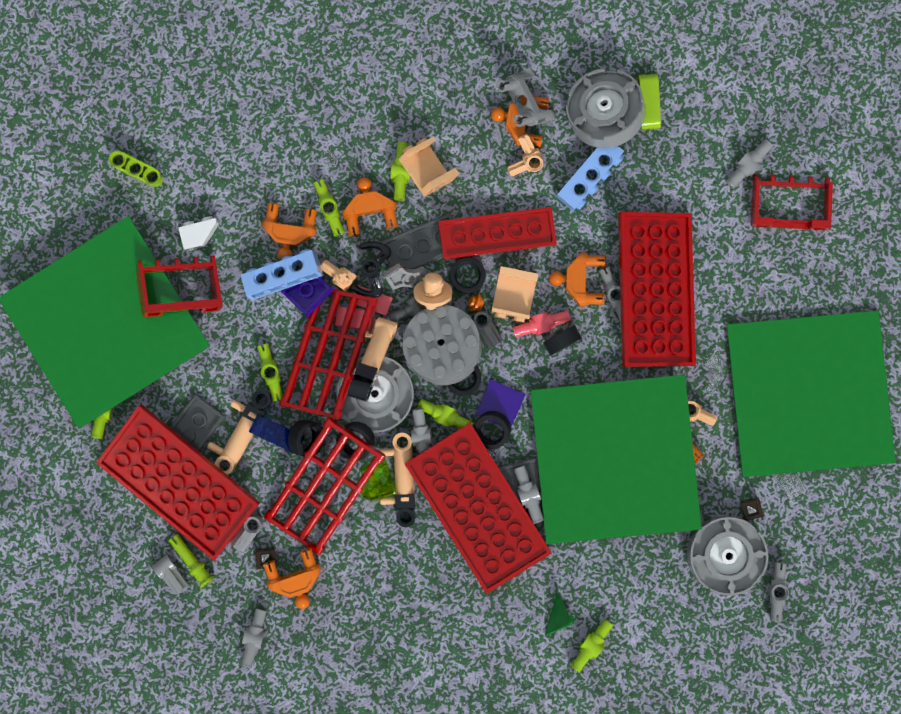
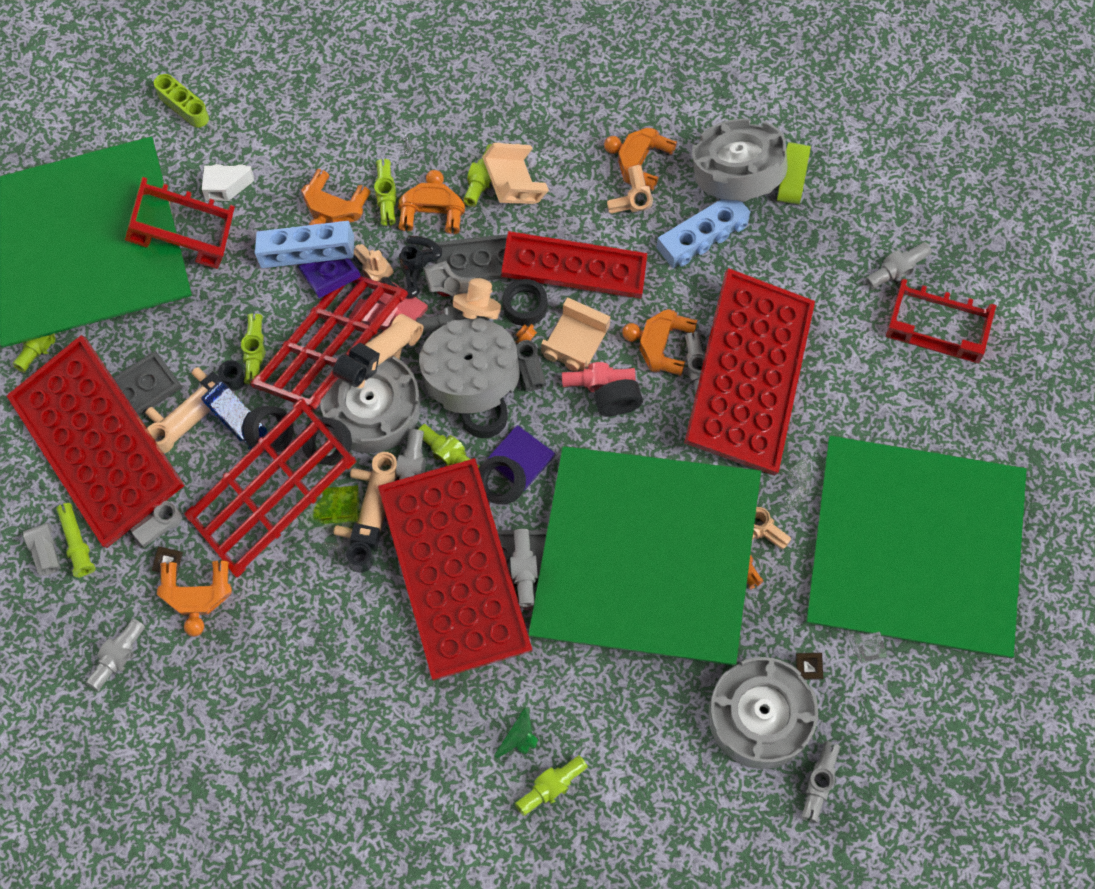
camera: 15 degrees right, 20 degrees down
(529, 113) = (650, 143): light grey connector -> none

